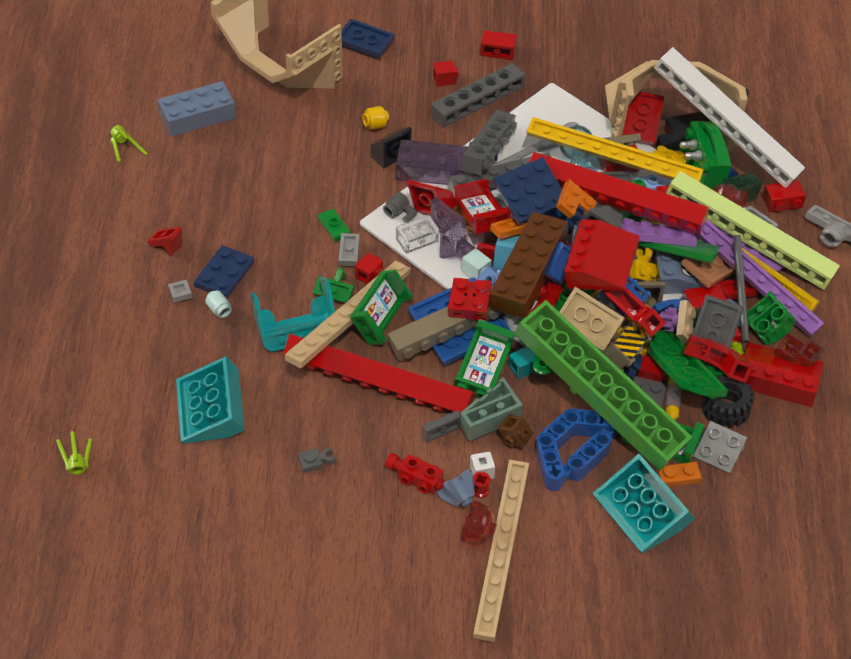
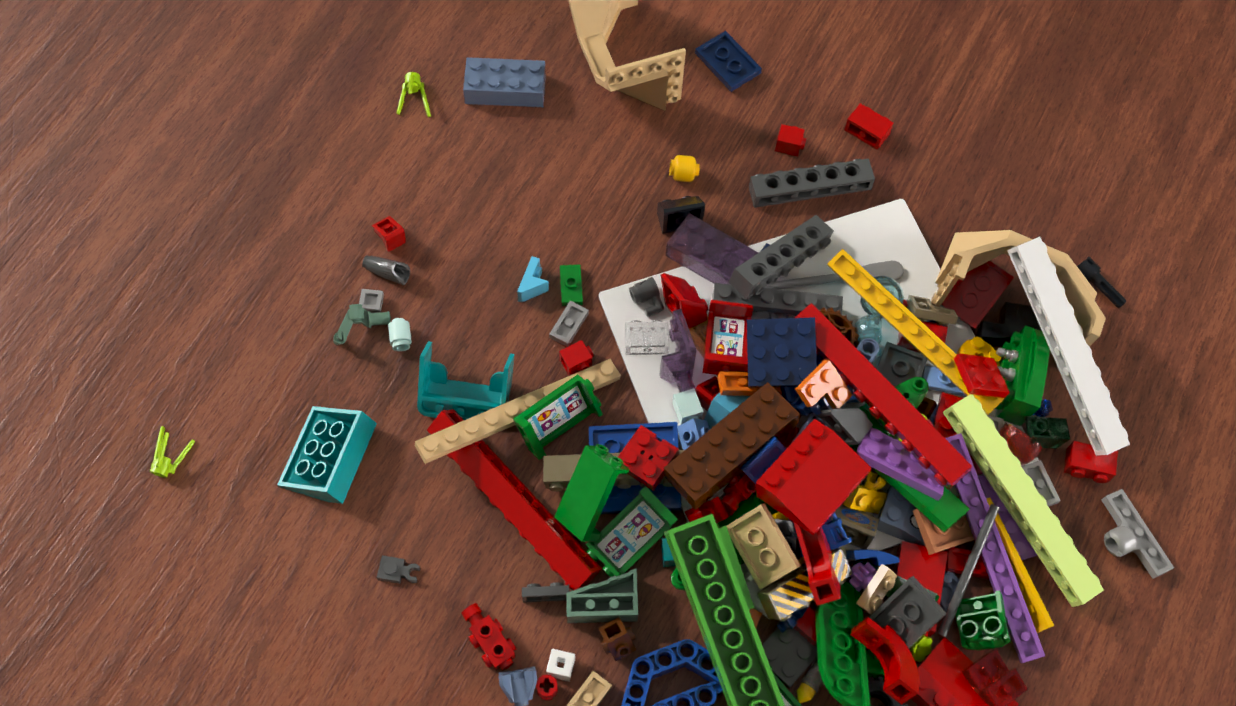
camera: 25 degrees right, 15 degrees up
(176, 302) = (358, 315): none -> sand green pin
(181, 264) = (387, 269): none -> dark grey piece
(224, 271) = (429, 295): dark blue plate -> none
(304, 233) = (531, 283): none -> medium azure slope
(340, 291) = (526, 367): green plate -> none
(439, 338) = (589, 491): none -> green panel
(679, 158) = (981, 375): none -> red plate

